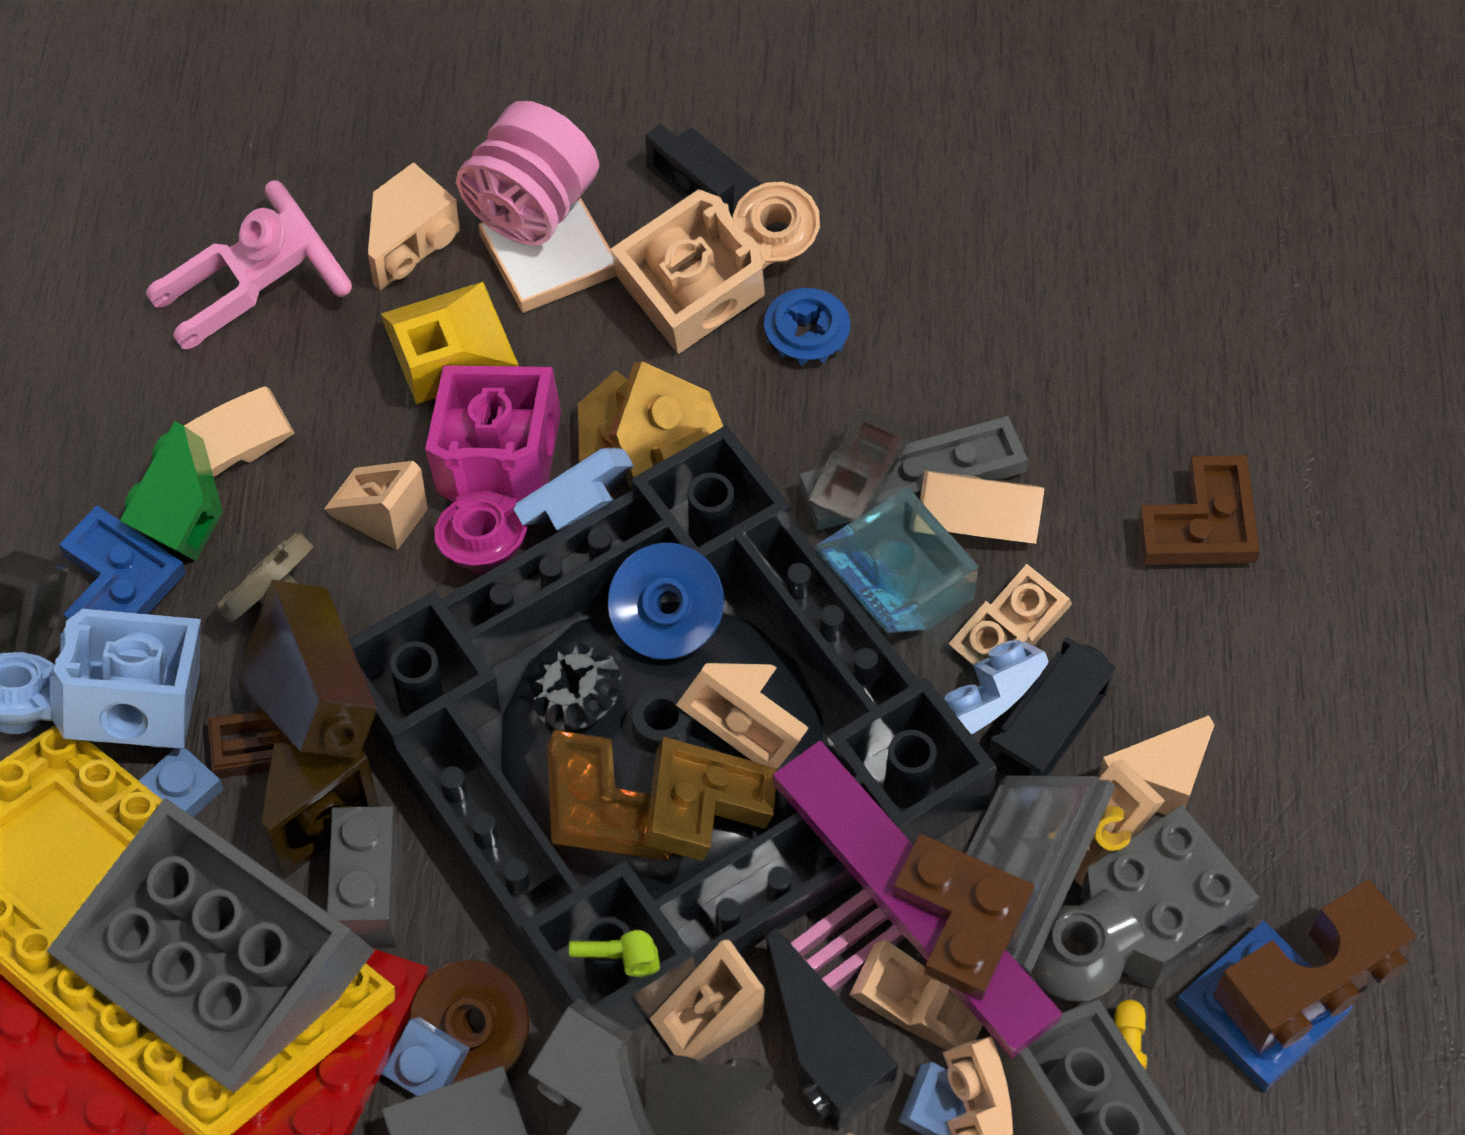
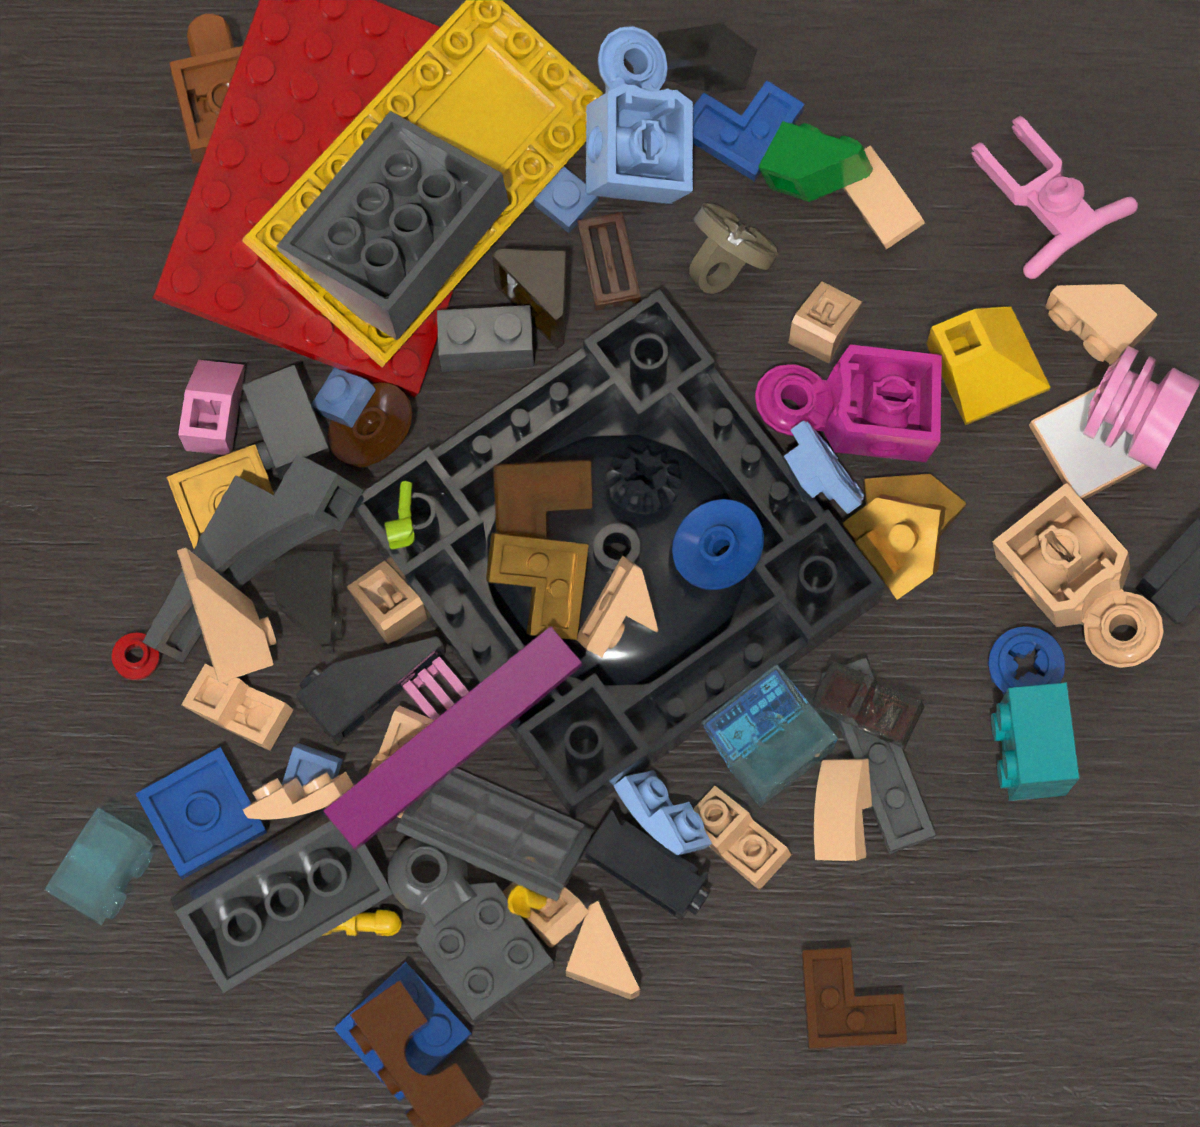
camera: 90 degrees right, 15 degrees up
(307, 672) = (626, 270): dark brown slope -> none
(907, 302) = (1035, 742): none -> teal brick
(979, 906) = (432, 784): reddish brown plate -> none

